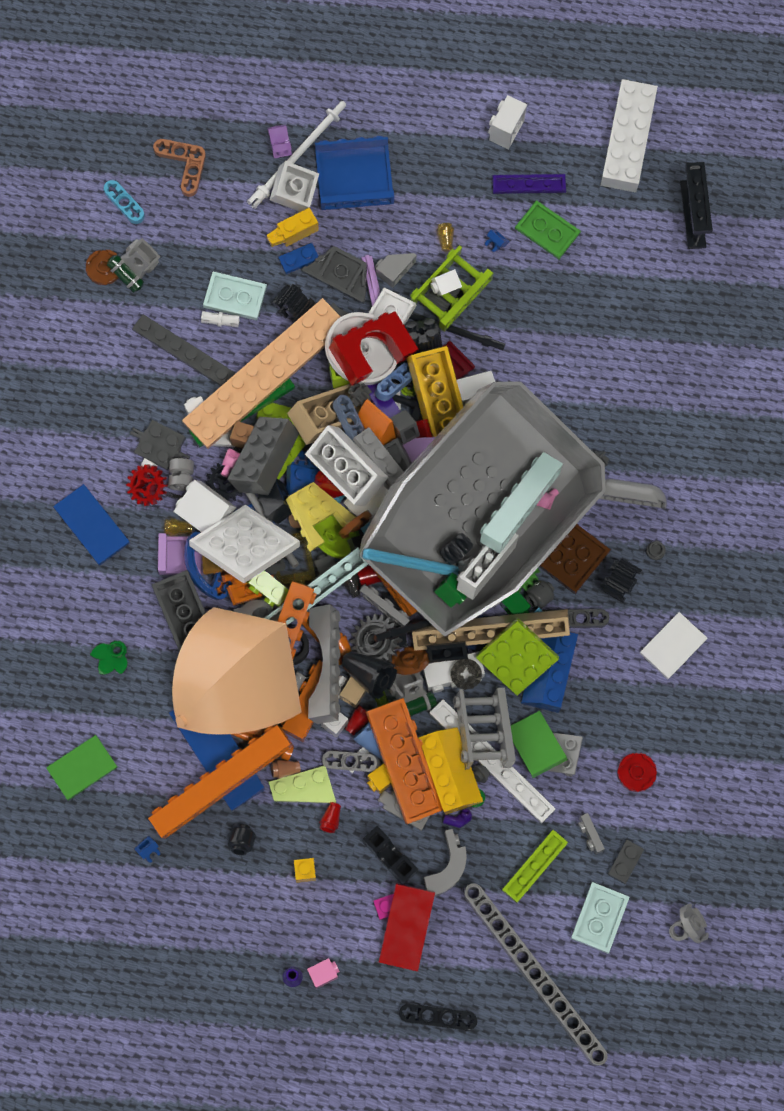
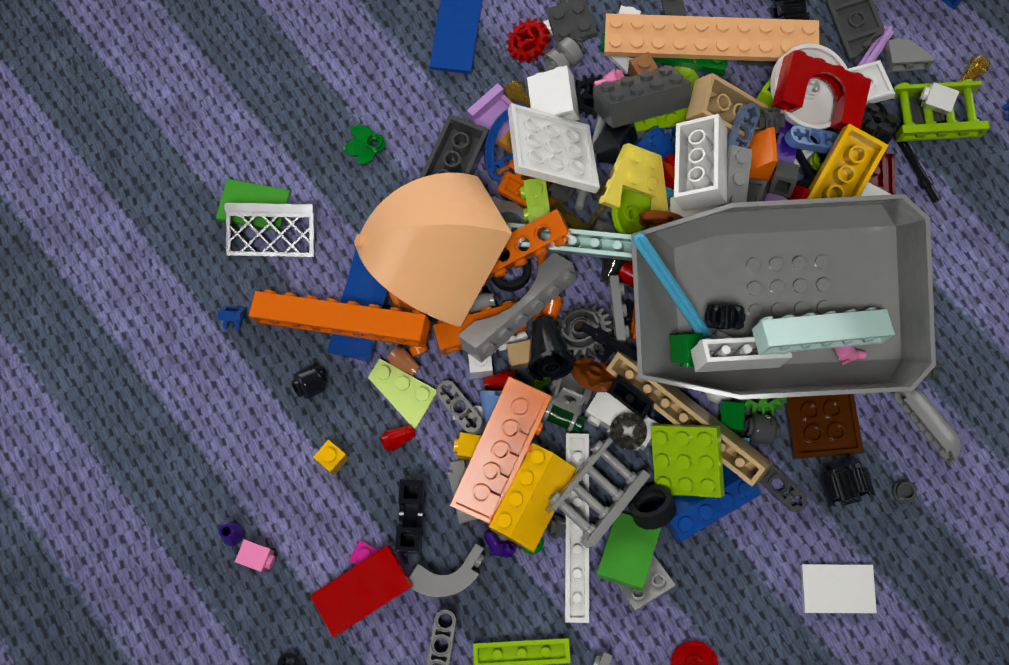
camera: 50 degrees right, 0 degrees up
(100, 758) = (270, 210): none -> fence
(534, 709) = (656, 518): none -> black tyre

